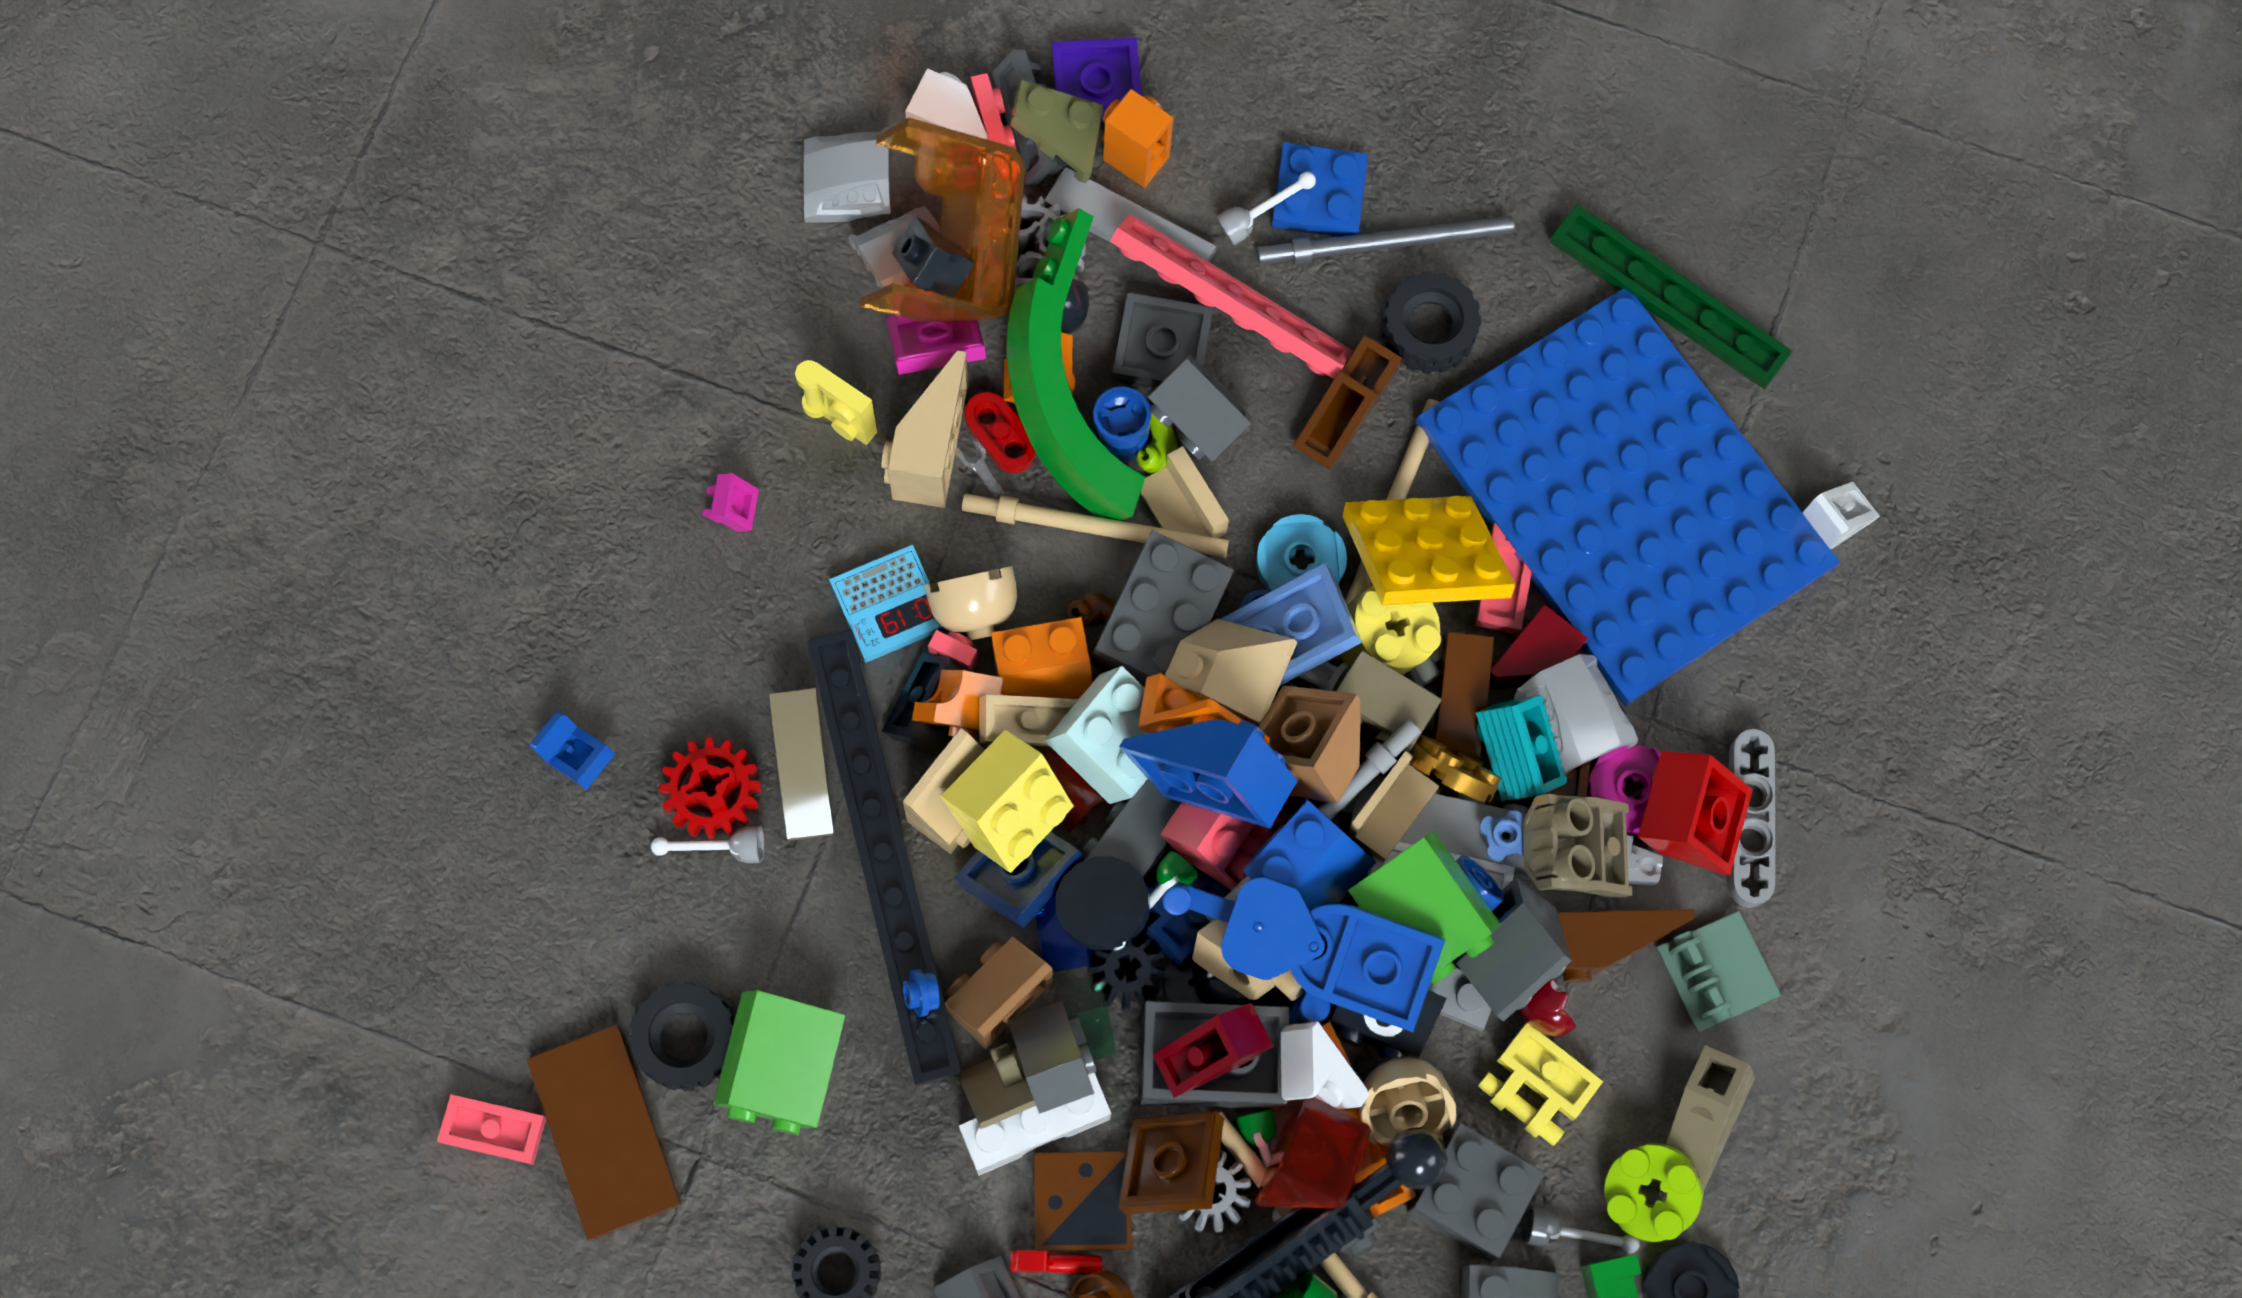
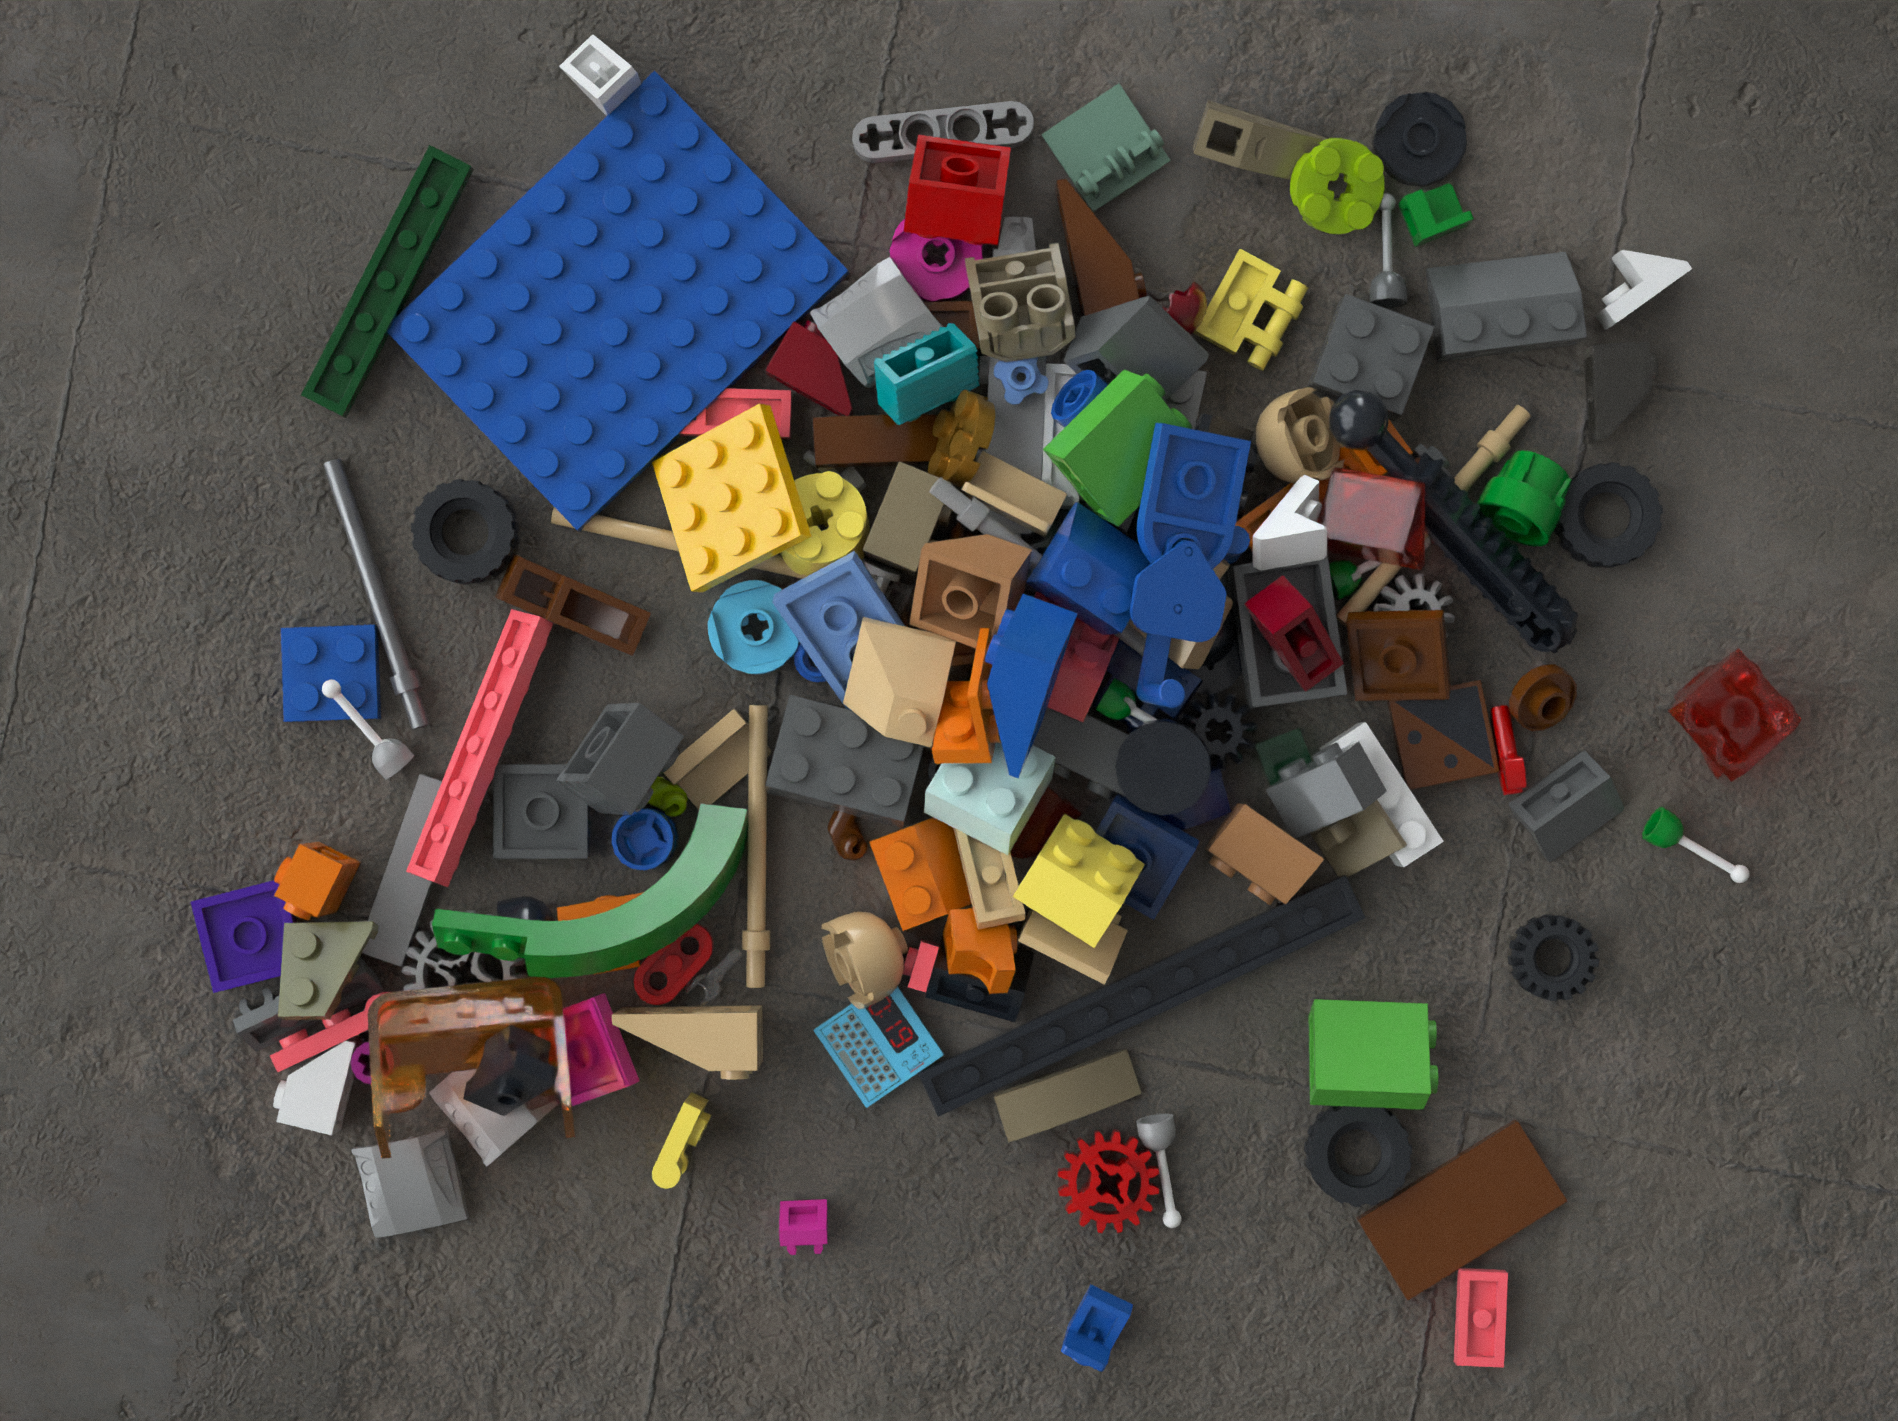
camera: 100 degrees left, 15 degrees up
(921, 992) = (1280, 929): blue plate -> none

